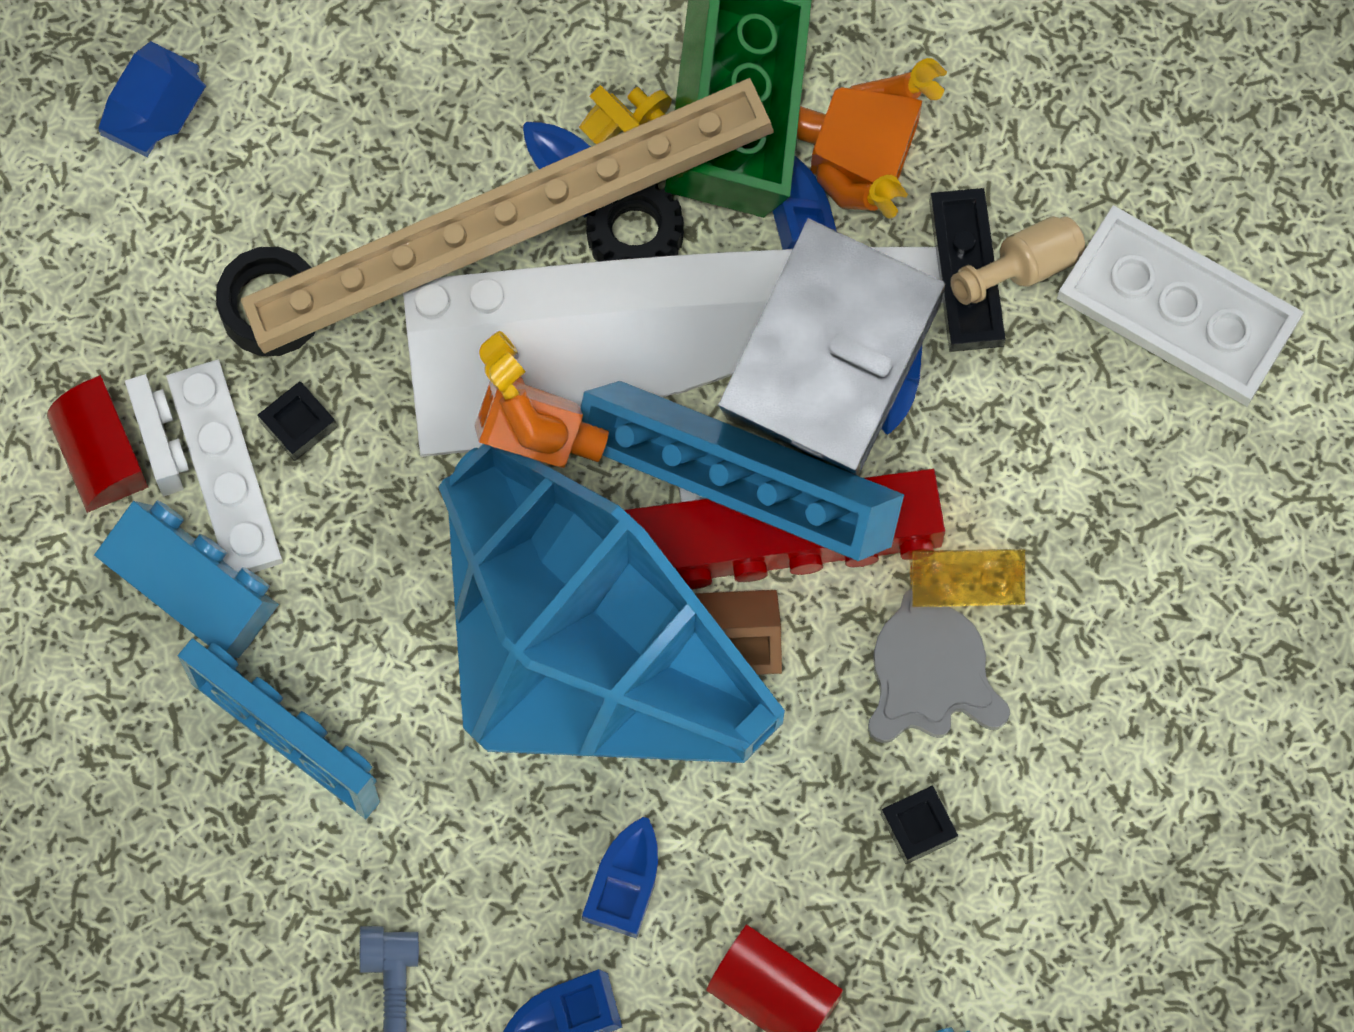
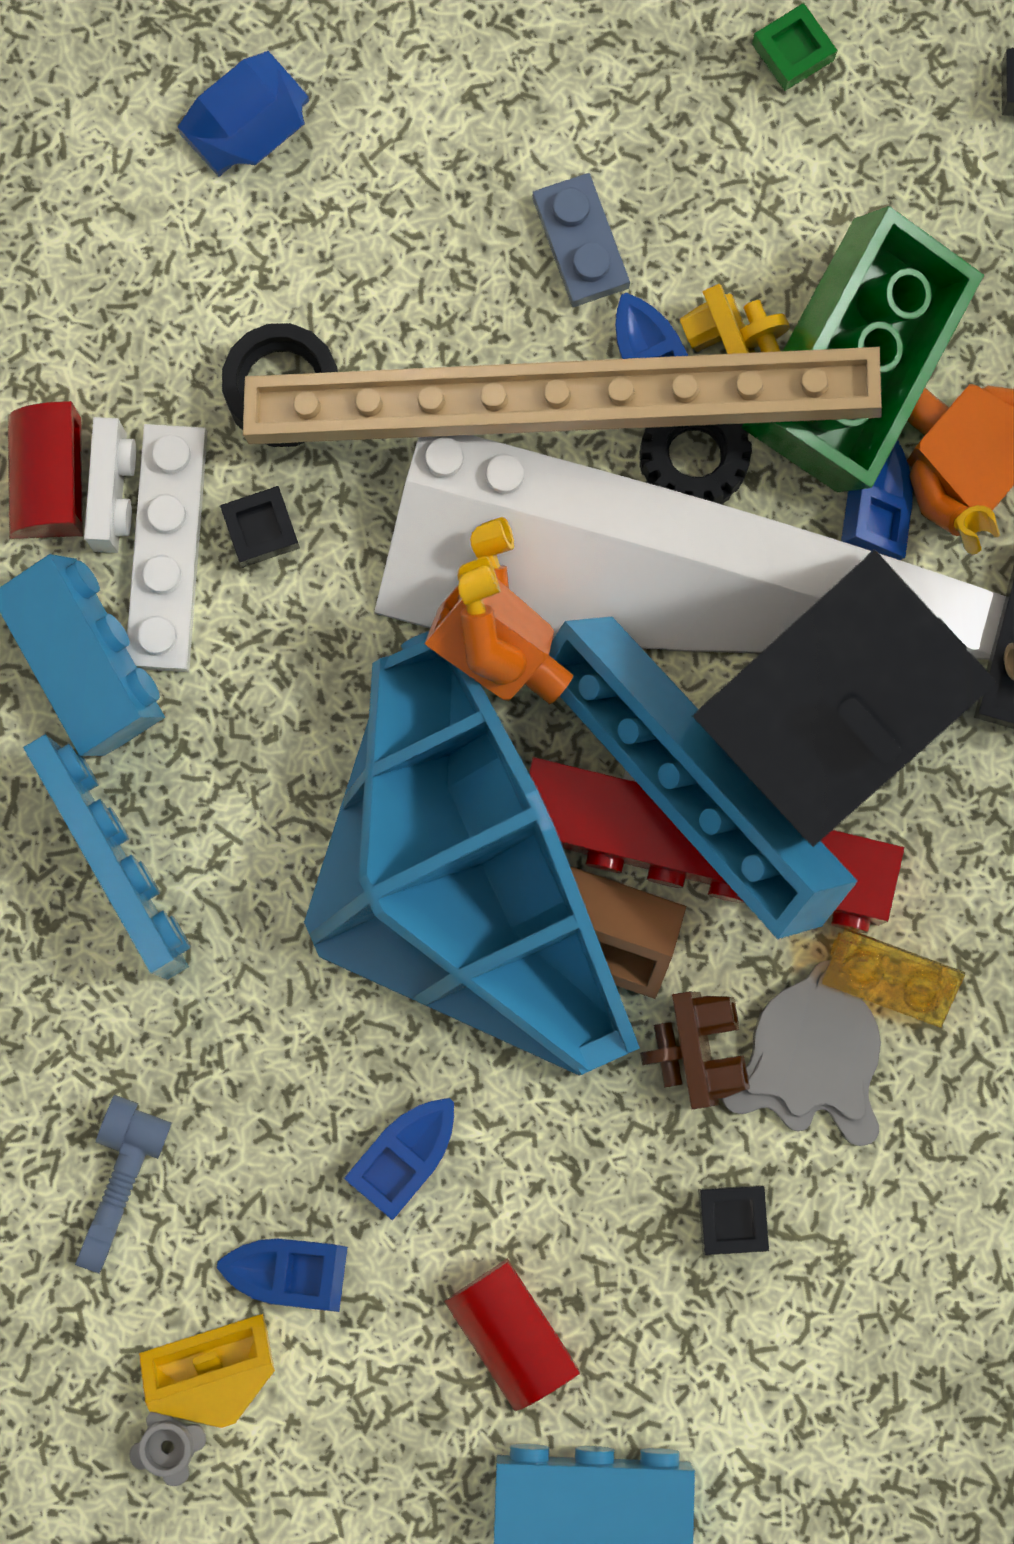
camera: 20 degrees right, 10 degrees up
(471, 96) = (581, 240): none -> sand blue plate
(851, 717) = (706, 1078): none -> reddish brown hips

